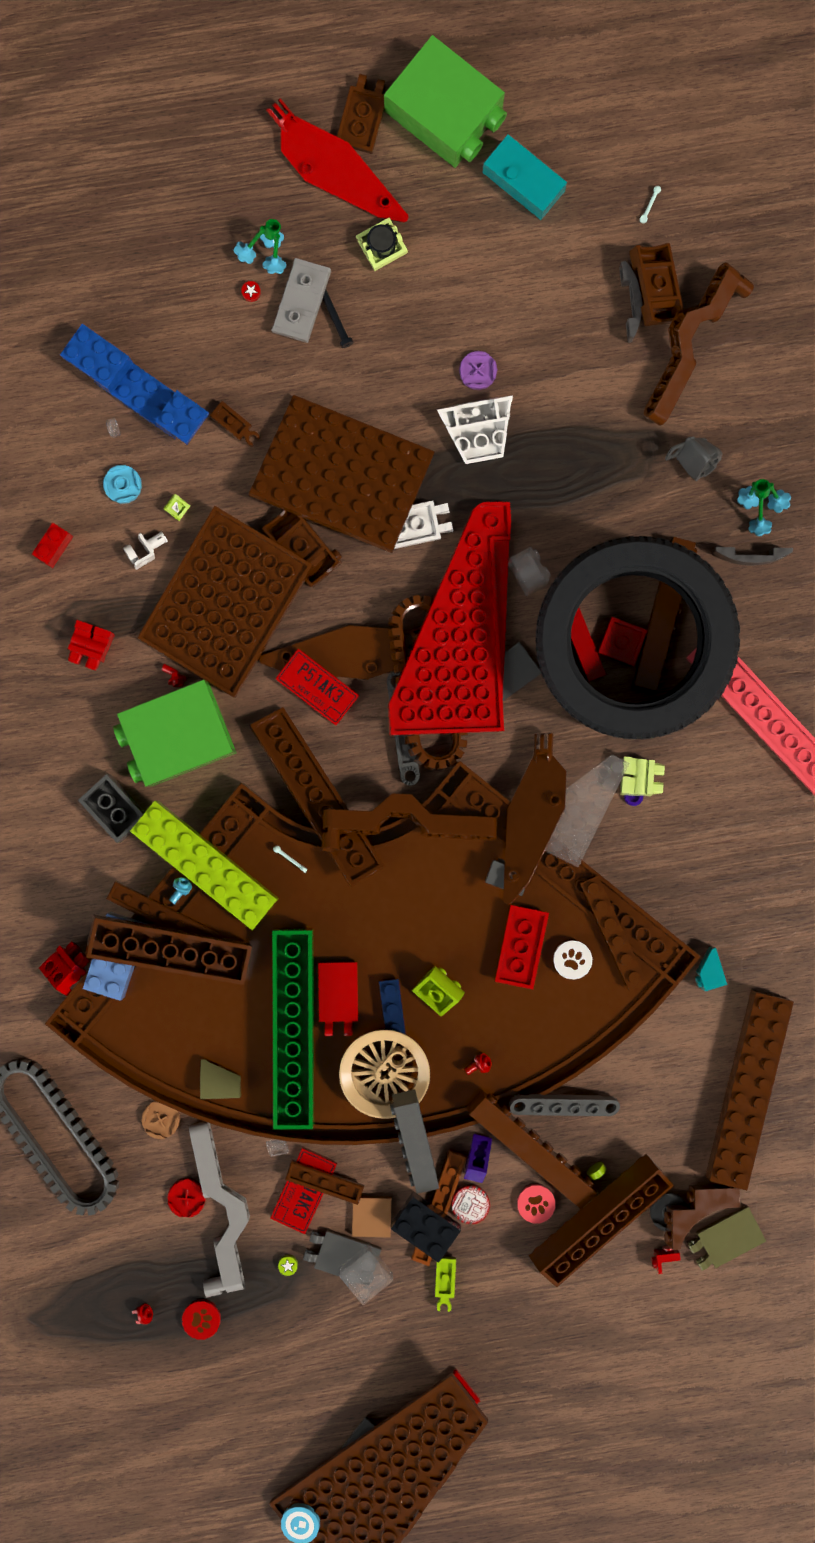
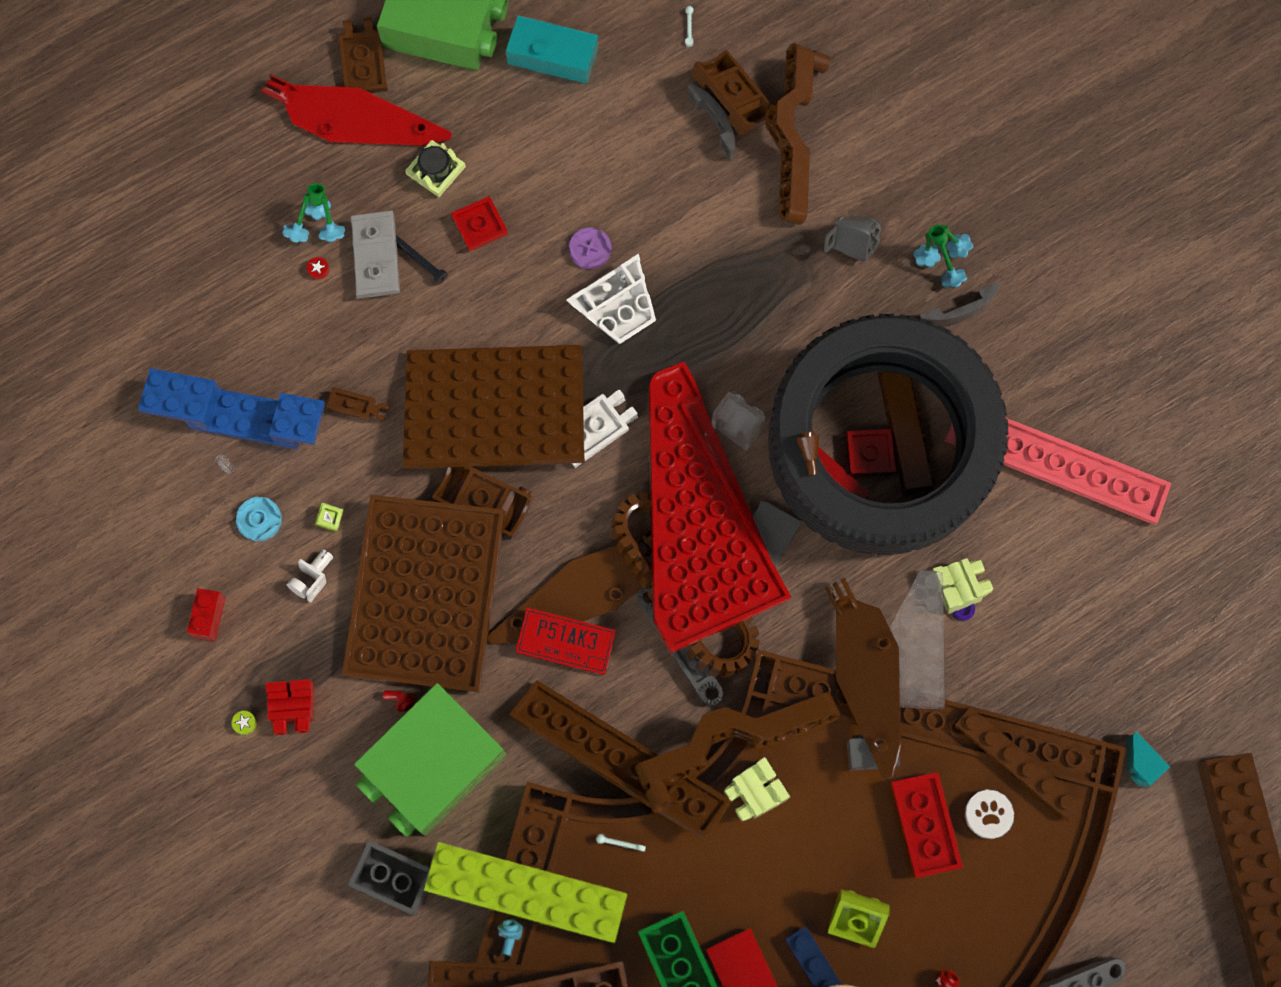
camera: 25 degrees left, 15 degrees down
(50, 641) = (244, 722): none -> lime tile
(397, 309) = (479, 223): none -> red plate
(405, 868) = (754, 794): none -> yellowish green hips
(565, 626) = (809, 446): none -> reddish brown cone

